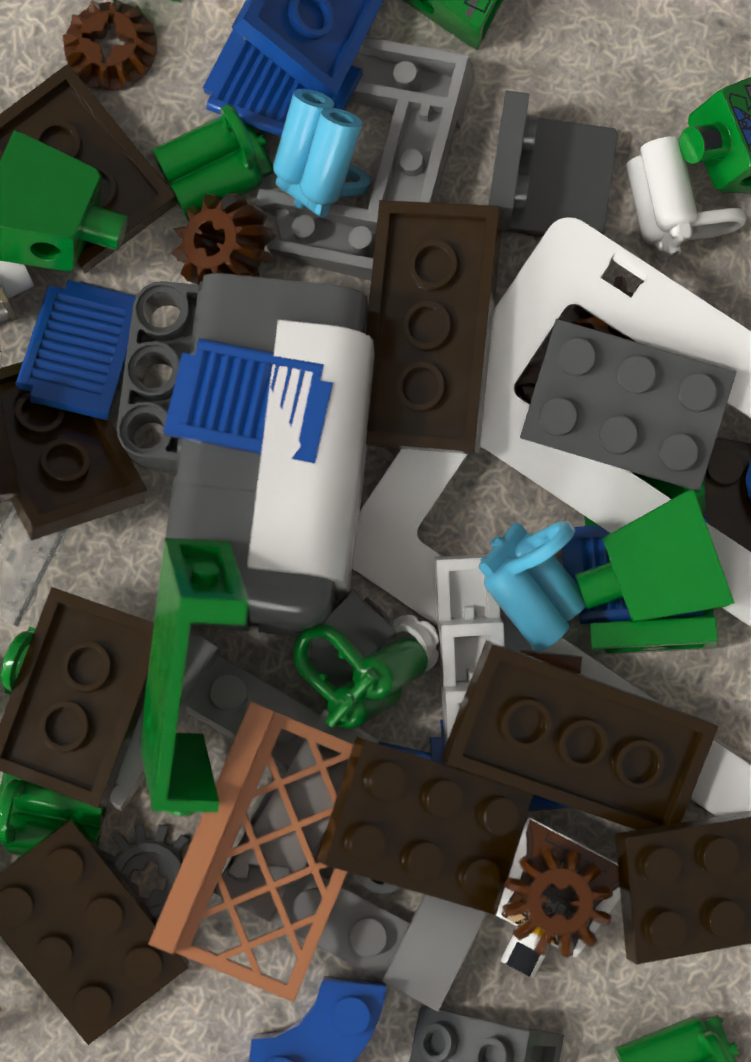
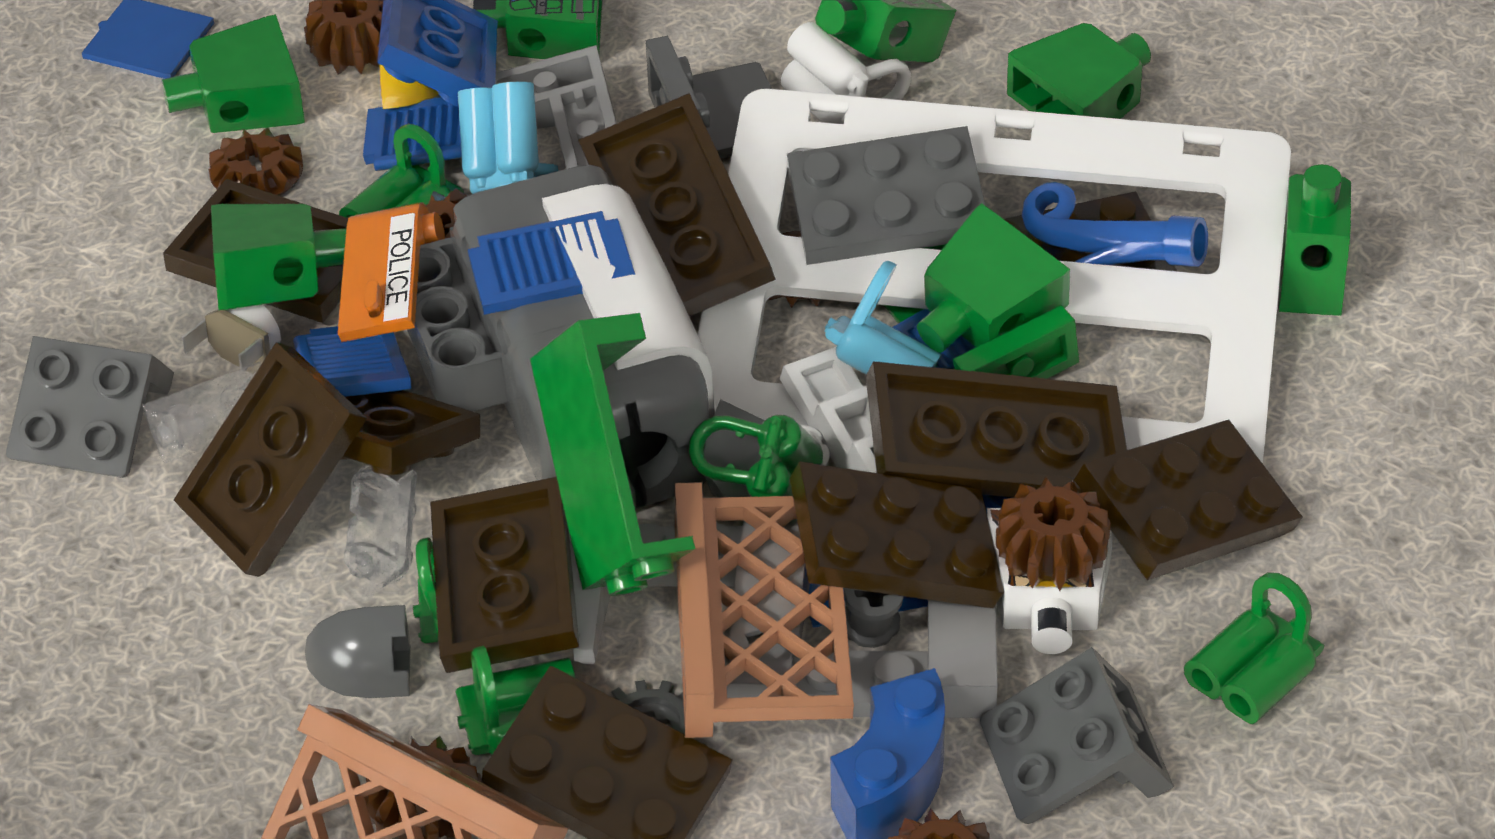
camera: 25 degrees left, 35 degrees down
(125, 292) = (383, 269): none -> orange door

